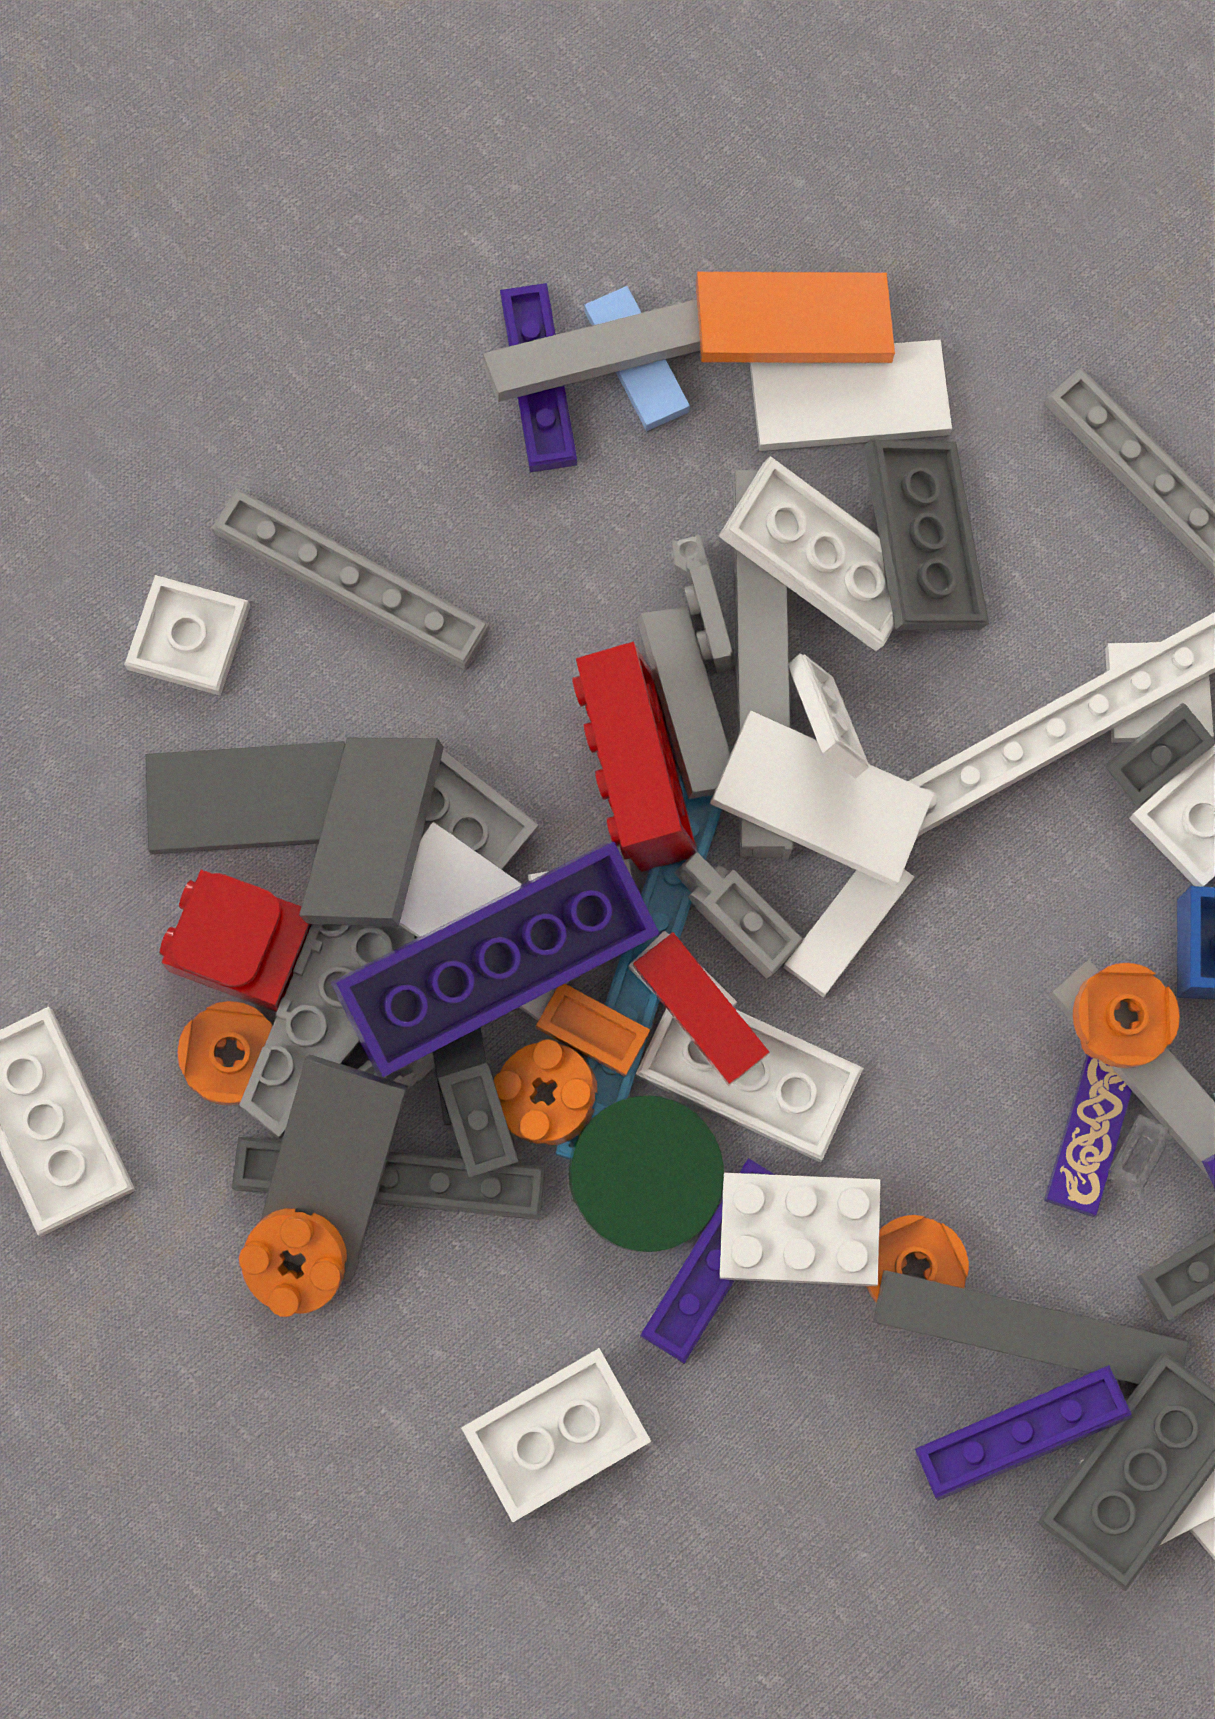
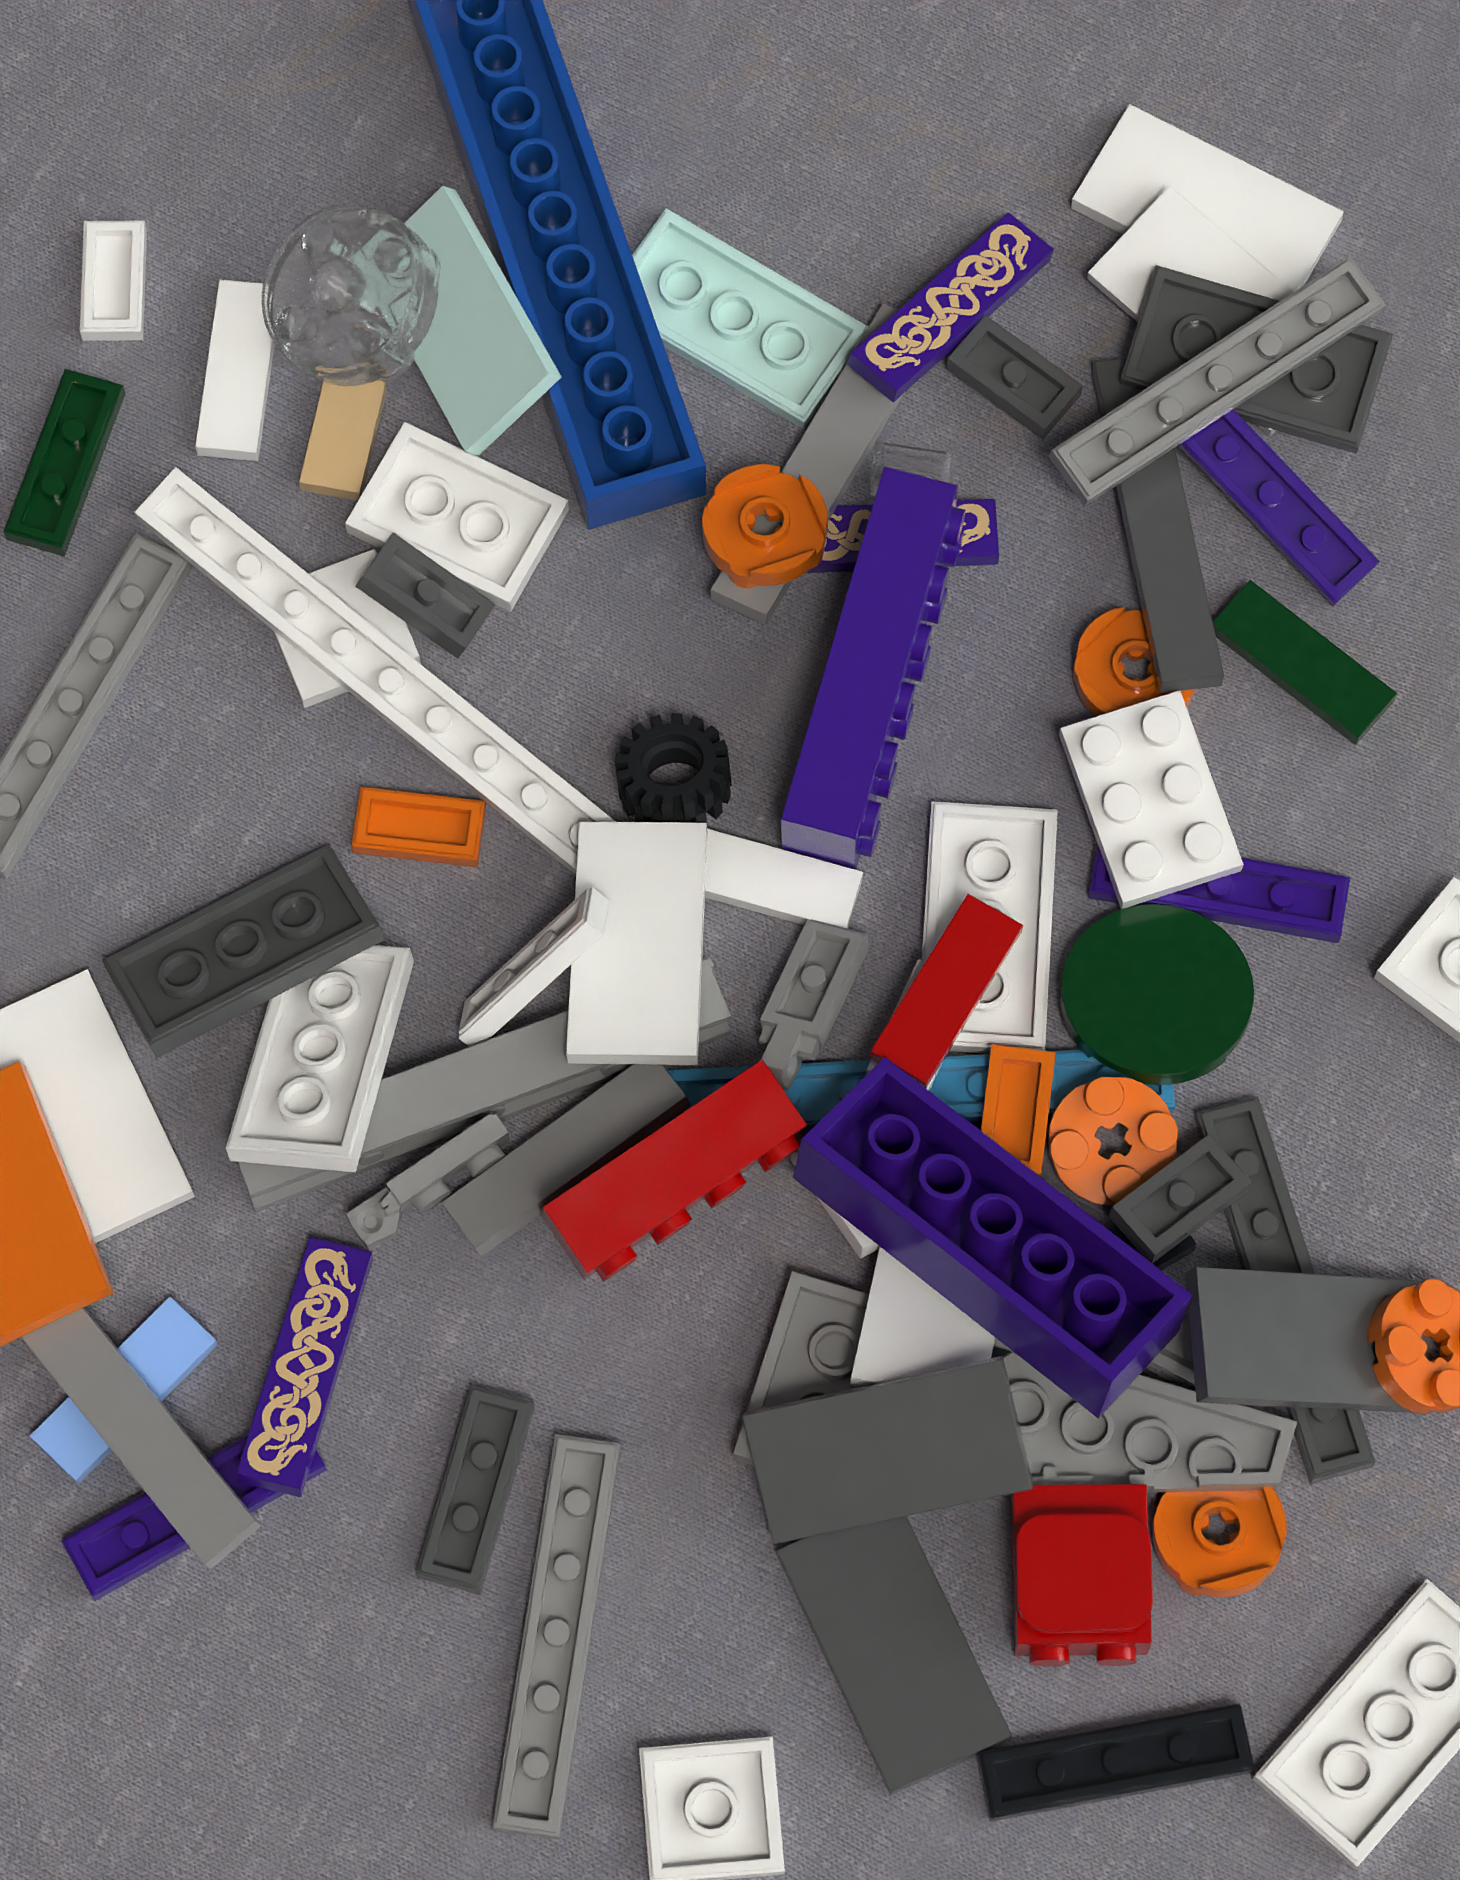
camera: 110 degrees left, 5 degrees down
(101, 918) = (1115, 1762): none -> black tile
(473, 561) = (475, 1490): none -> dark grey tile
(602, 473) = (304, 1367): none -> tile
(875, 1404) = (1303, 662): none -> dark green tile
(975, 869) = (668, 745): none -> black tyre
(977, 1050) = (869, 669): none -> dark purple brick
(980, 693) = (419, 827): none -> orange tile
(1129, 1423) = (1216, 381): none -> light grey tile

